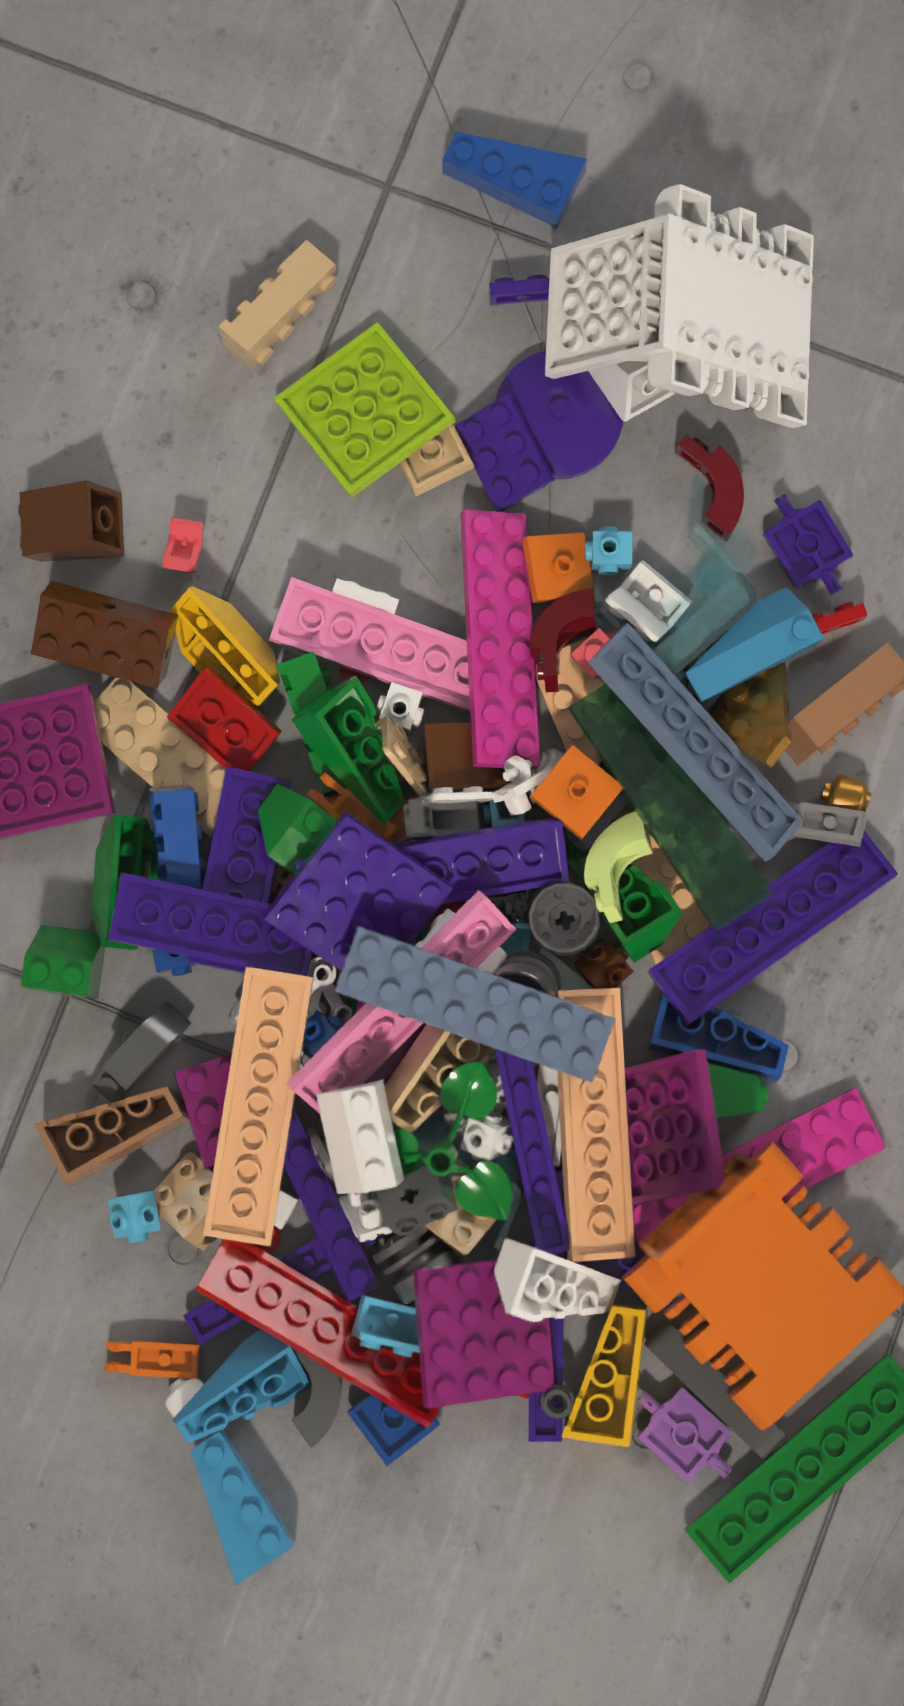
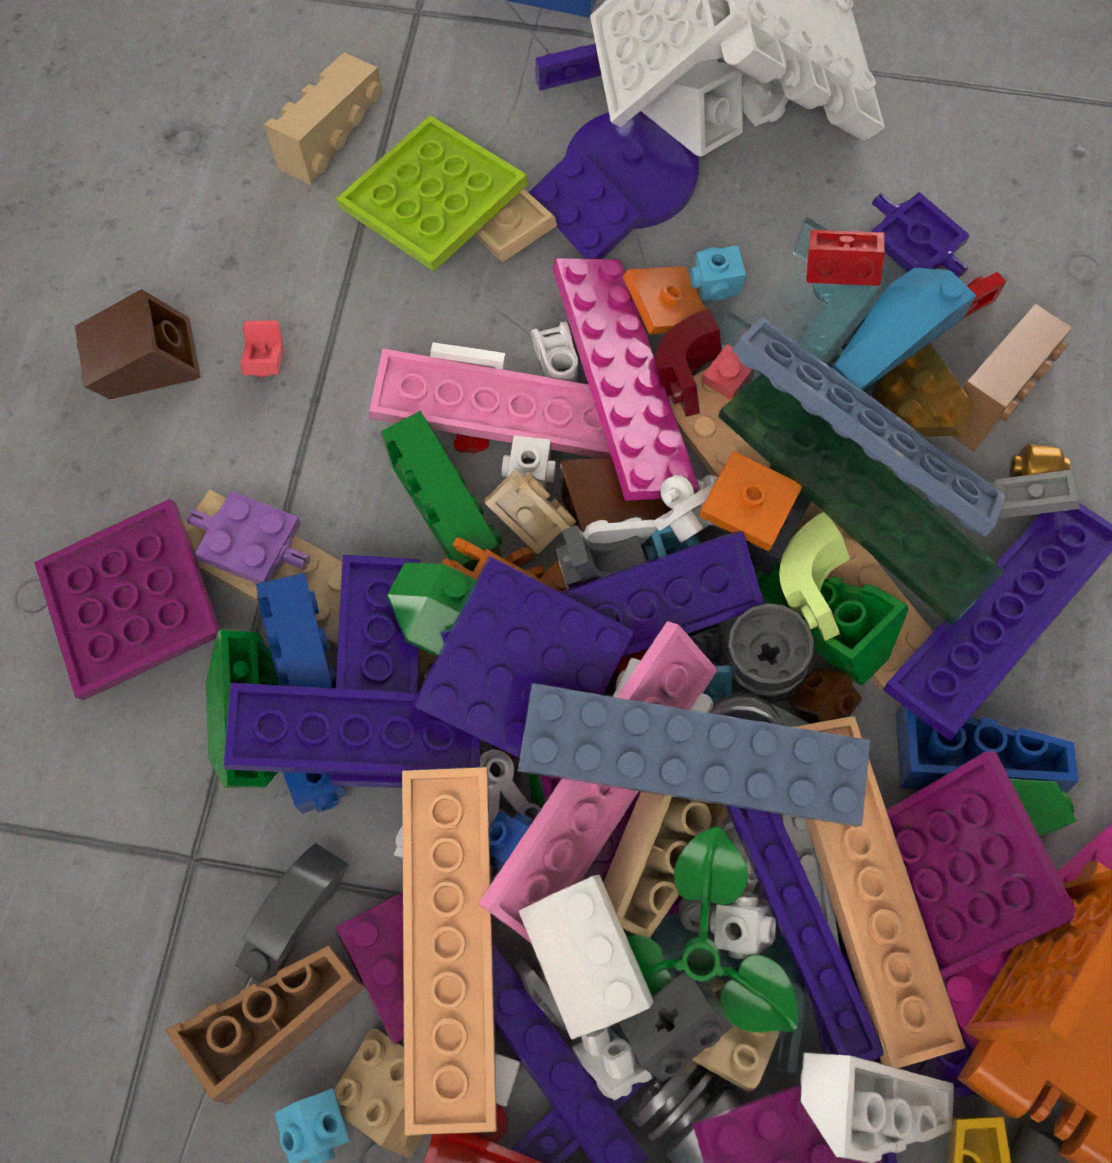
camera: 10 degrees left, 15 degrees down
(64, 962) = (180, 823): green slope -> none
(104, 634) = (183, 447): reddish brown brick -> none
(148, 730) = (248, 538): none -> medium lavender plate
(219, 637) = (320, 440): yellow wedge -> none
(223, 722) = (336, 514): red plate -> none
(346, 738) = (474, 495): green wedge -> none
(447, 596) = (556, 351): none -> white piece
(648, 602) = (776, 306): white bracket -> none
(718, 574) = (845, 257): none -> red bracket
(724, 482) = (808, 186): dark red arch -> none

